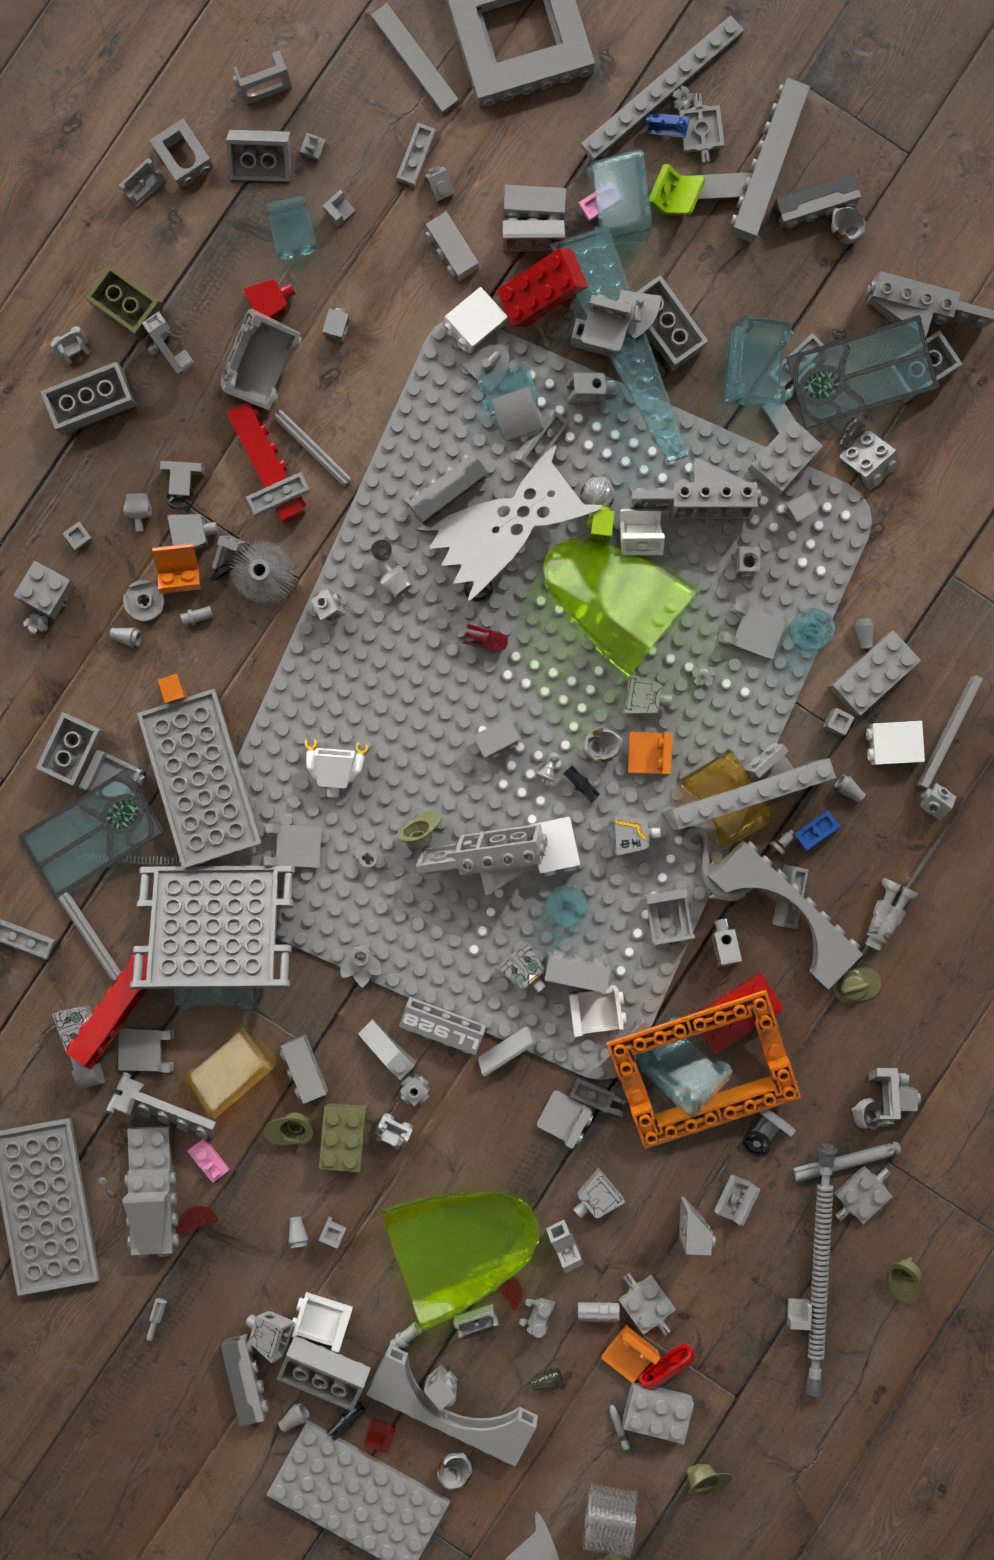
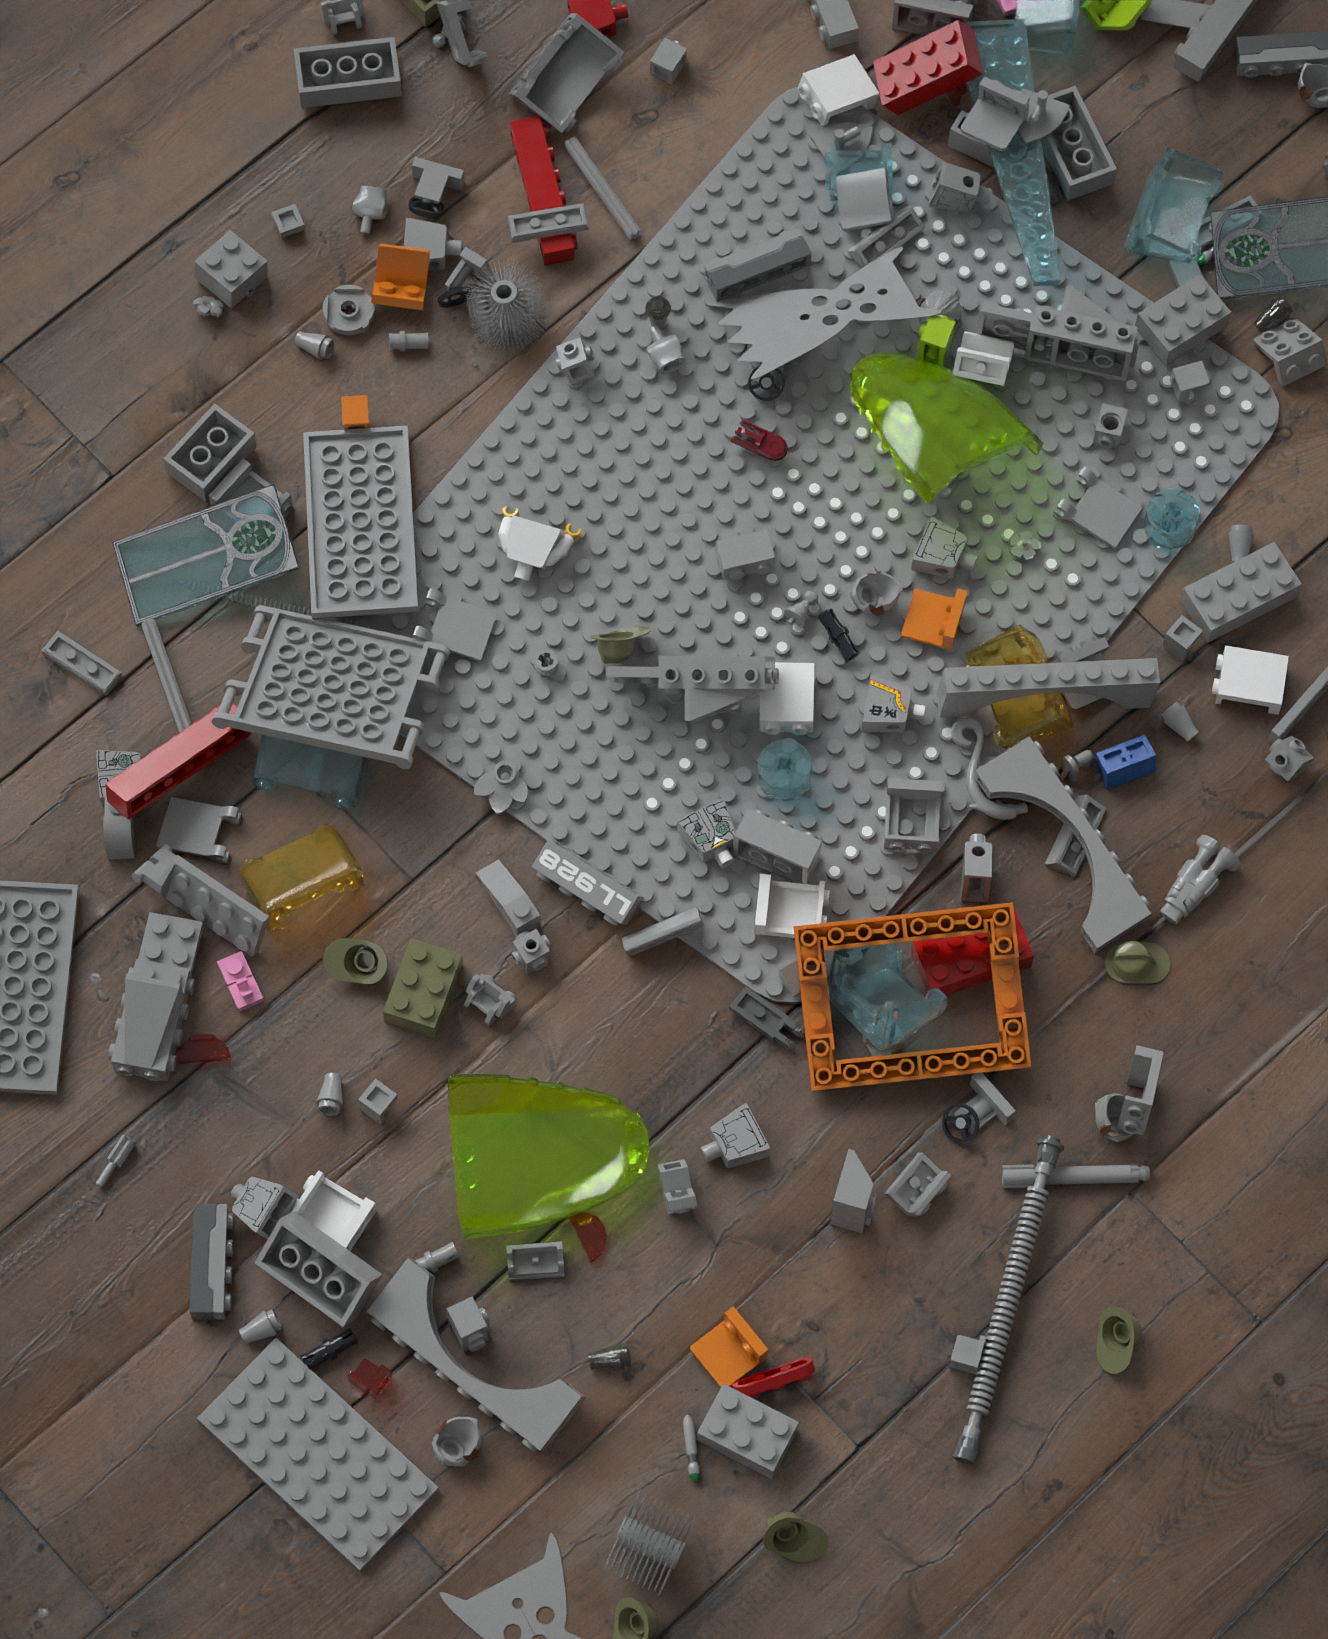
camera: 10 degrees right, 20 degrees down
(303, 1069) = (394, 895): light grey brick -> none
(539, 1316) = (620, 1273): light grey piece -> none
(565, 1118) = (716, 1033): light grey bracket -> none
(598, 1312) = (700, 1286): light grey axle -> none
(647, 1304) = (767, 1294): light grey plate -> none
(863, 1194) = (1087, 1222): light grey plate -> none
(908, 1095) = (1168, 1109): light grey brick -> none

